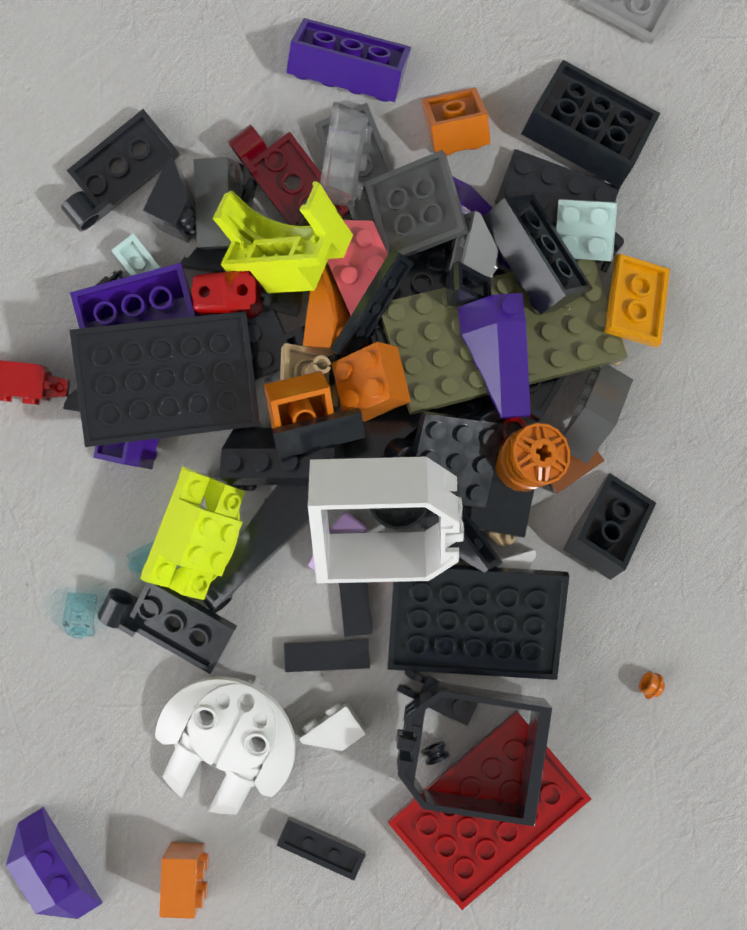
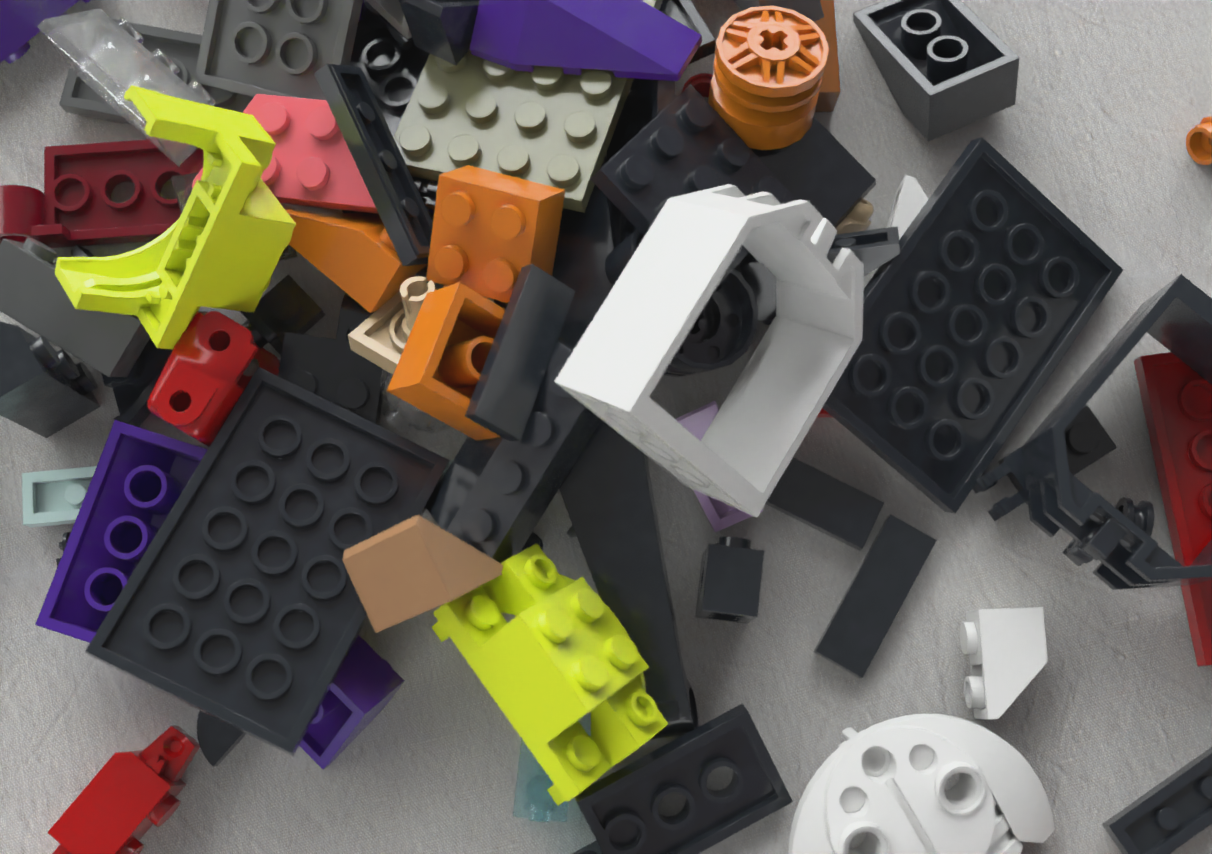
camera: 60 degrees left, 10 degrees down
(193, 450) = (414, 571): none -> medium nougat slope
(286, 587) = (730, 581): none -> black brick

